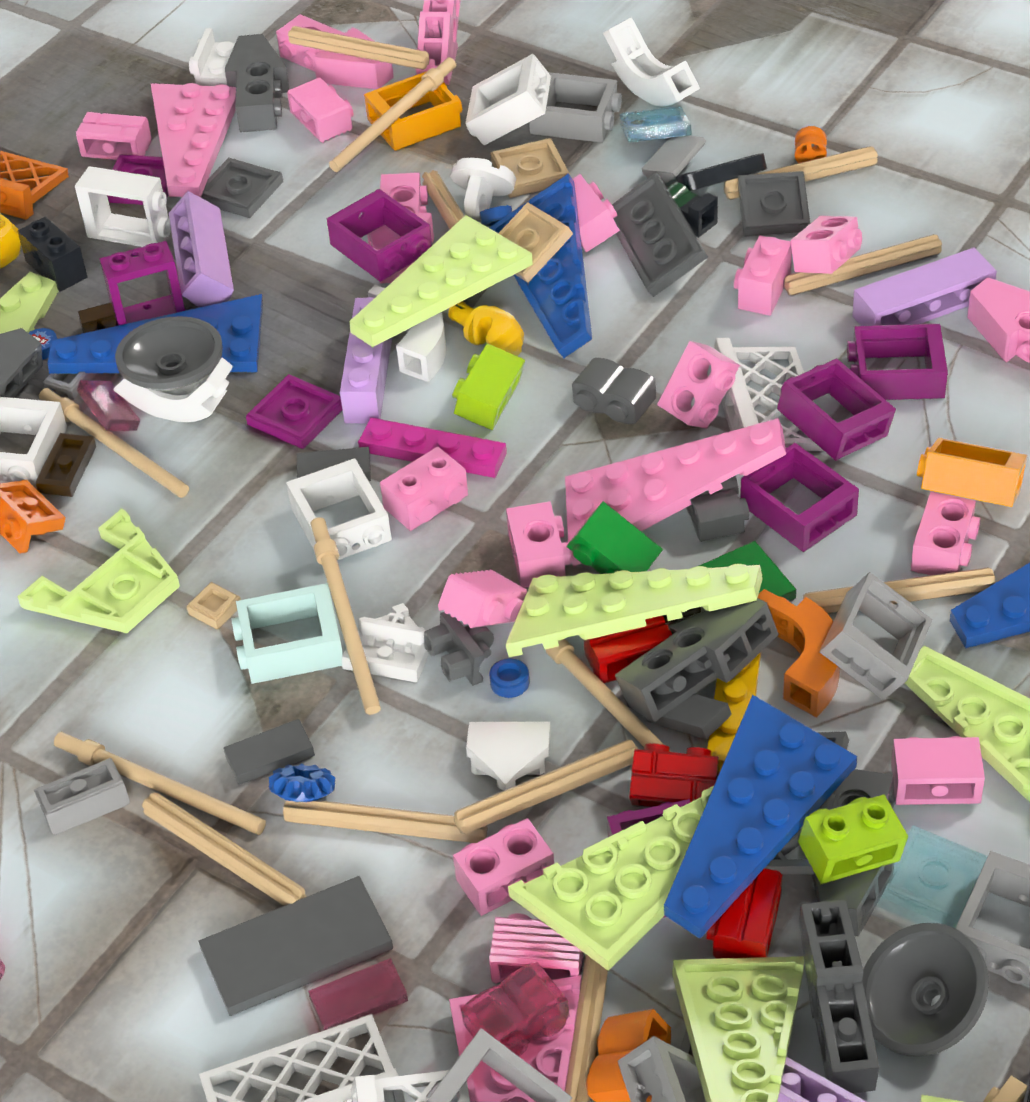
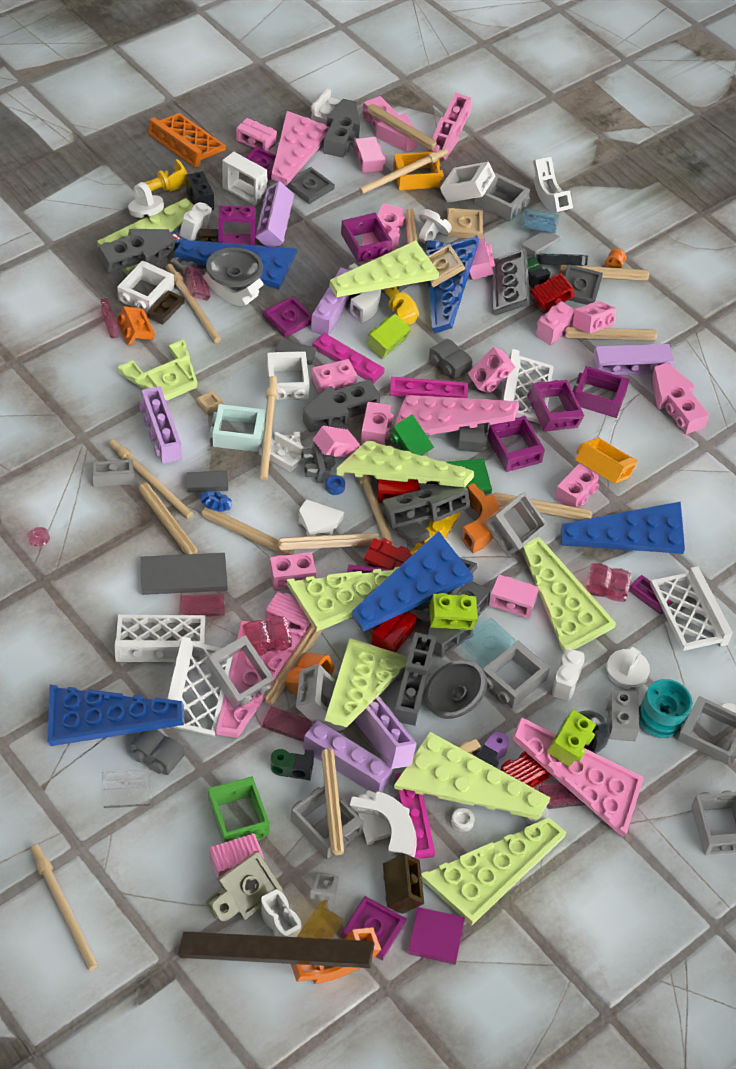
camera: 10 degrees right, 5 degrees up
(62, 302) = (195, 220): none -> white brick
(141, 675) = (161, 425): none -> lavender brick
(453, 536) = (336, 407): none -> dark grey brick
(556, 462) = (423, 387): none -> dark pink plate
(735, 229) = (551, 293): none -> red brick

